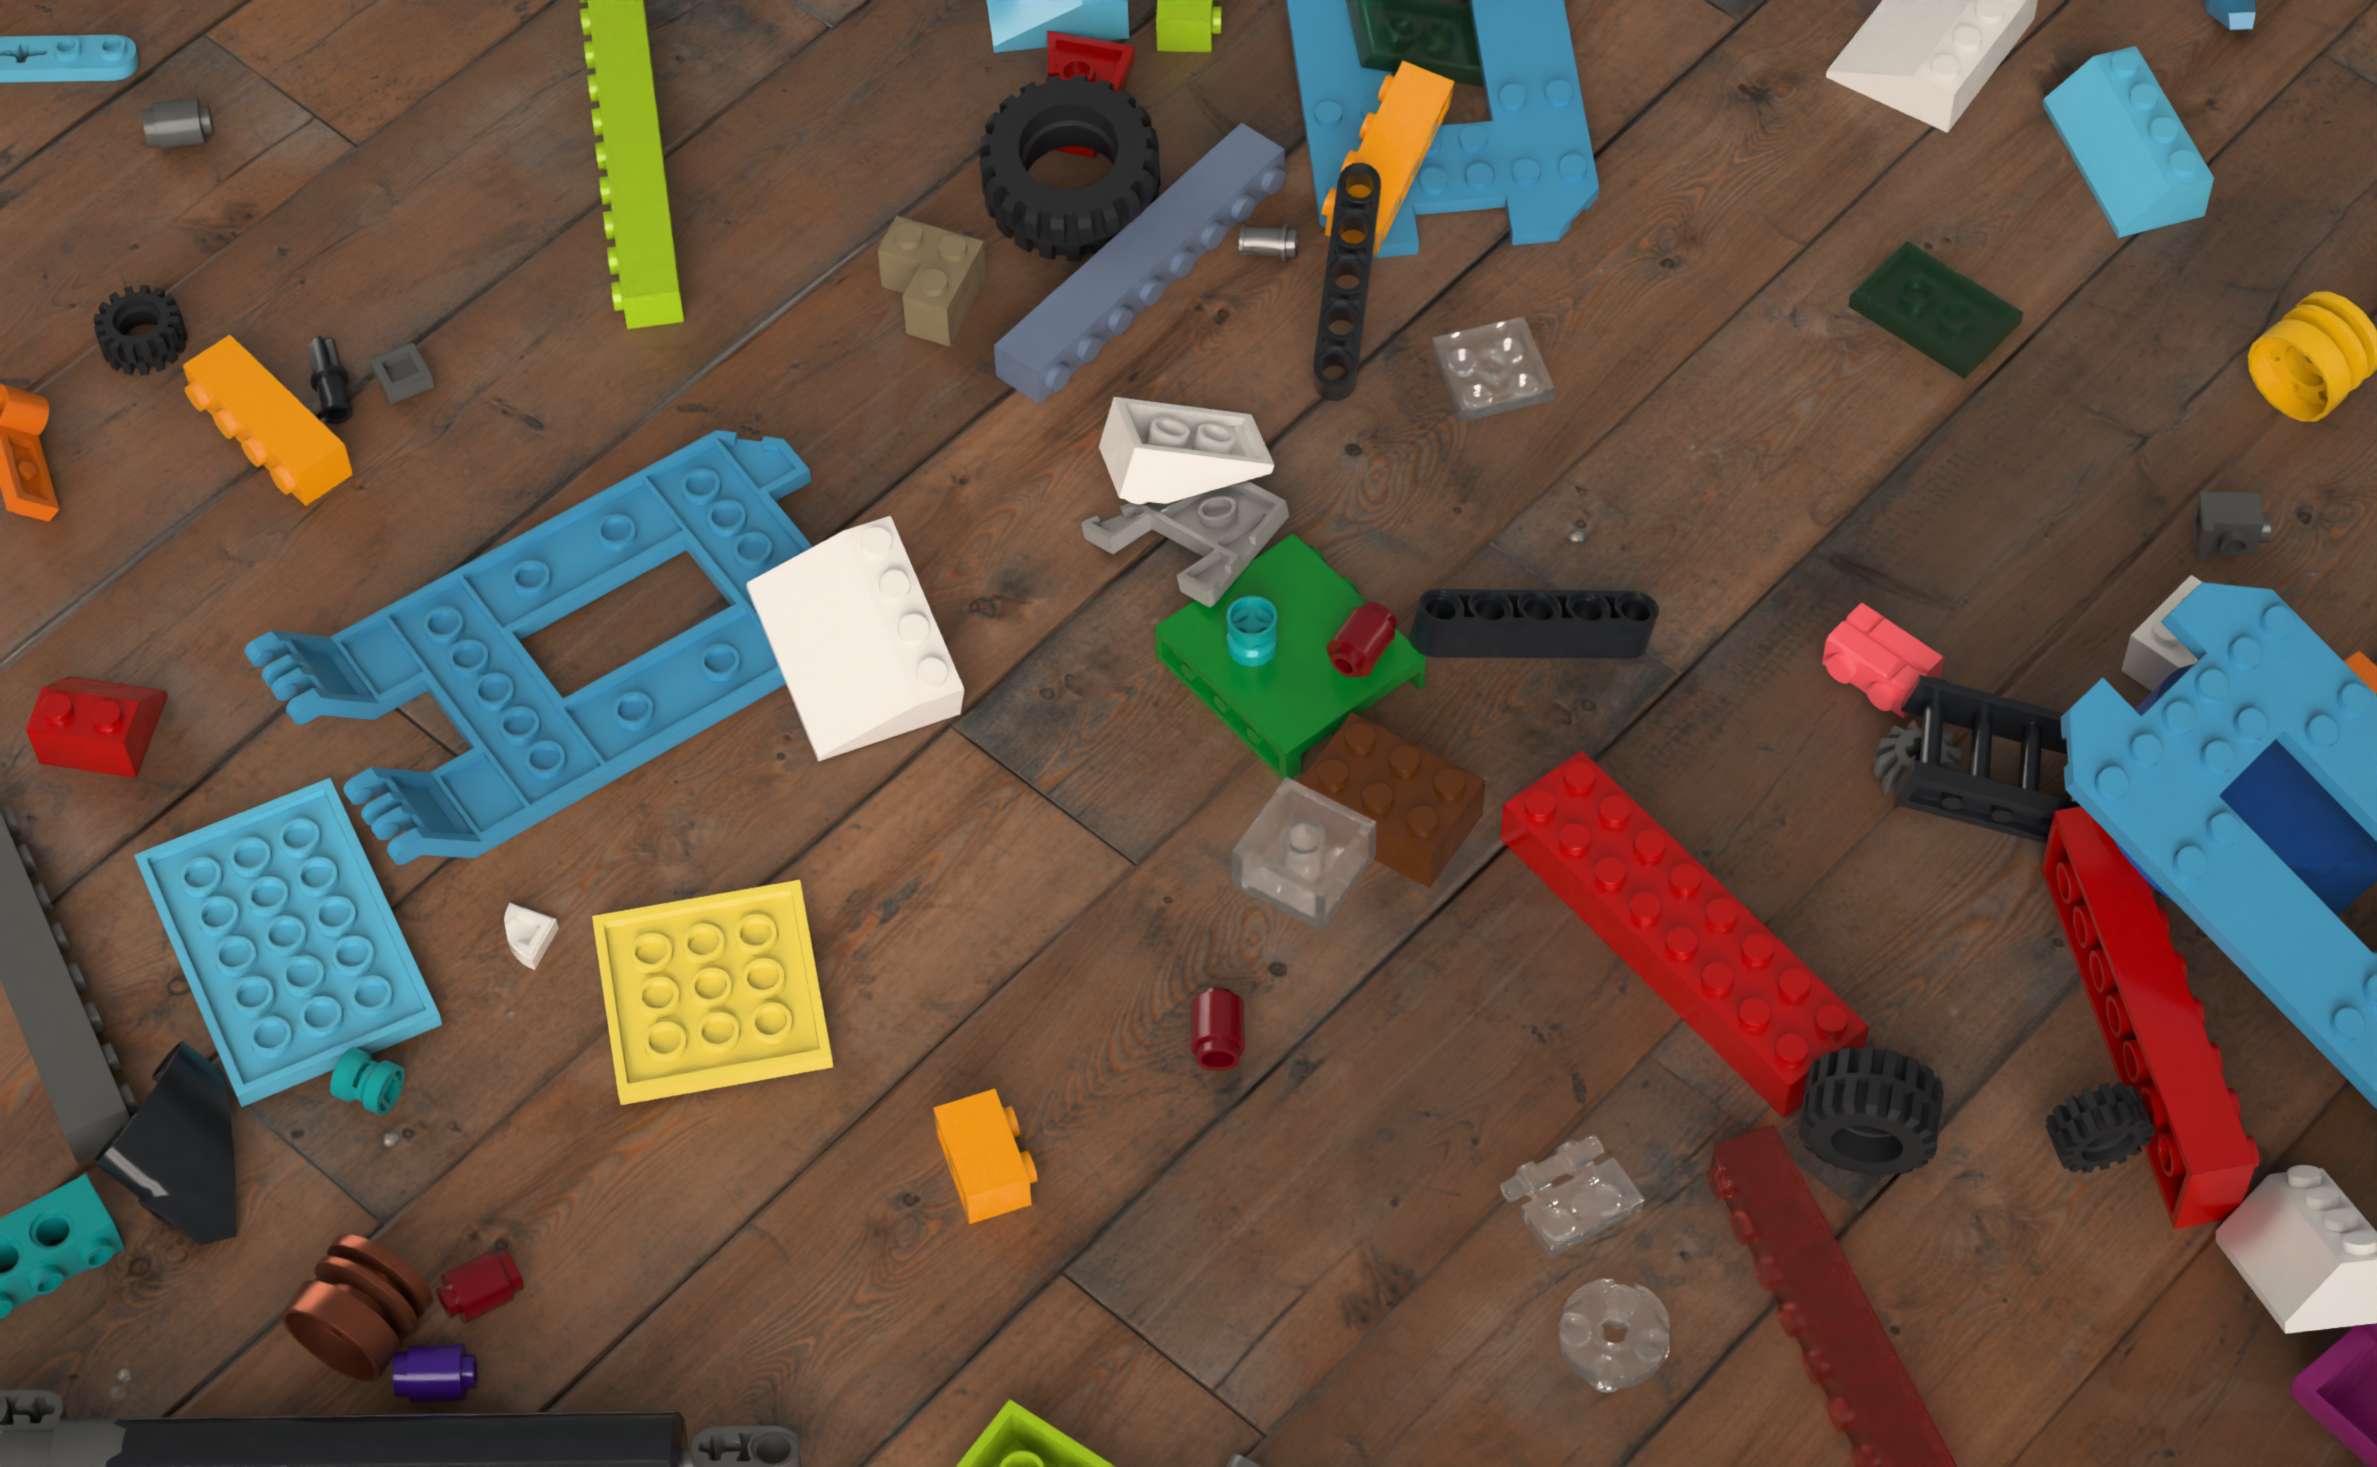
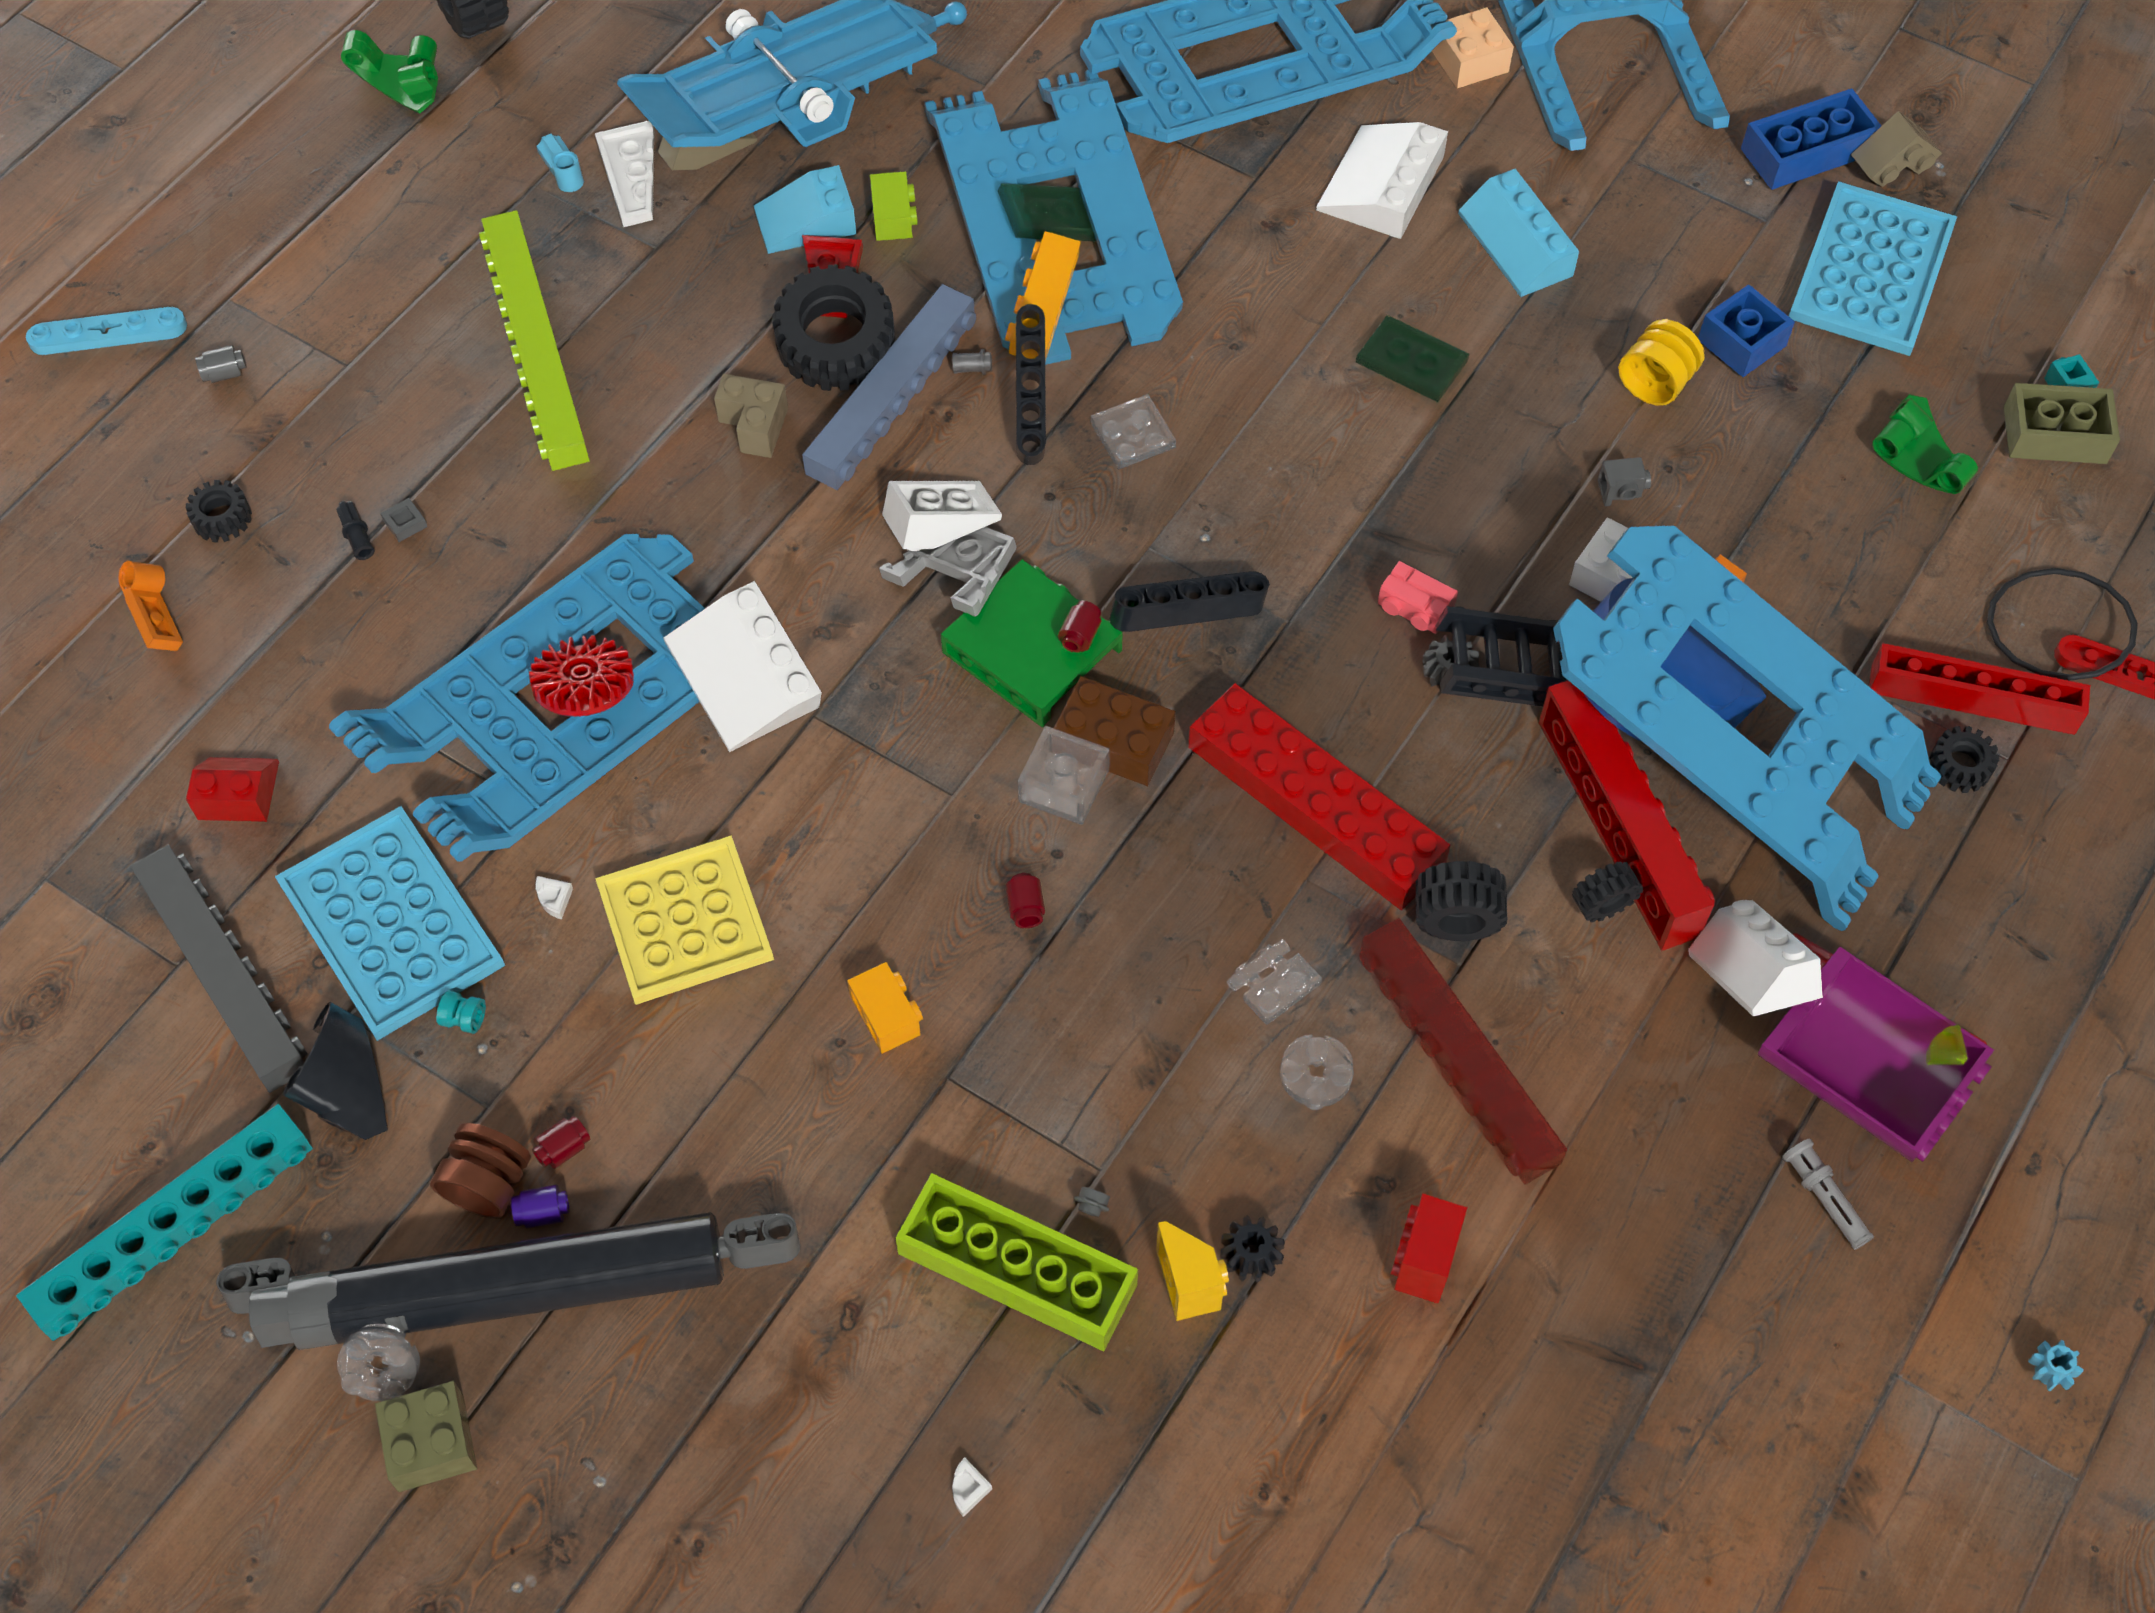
camera: 10 degrees left, 5 degrees up
(266, 421) = (316, 563): light orange brick -> none
(619, 626) = (581, 677): none -> red wheel
(1252, 631) = (1006, 629): teal wheel -> none

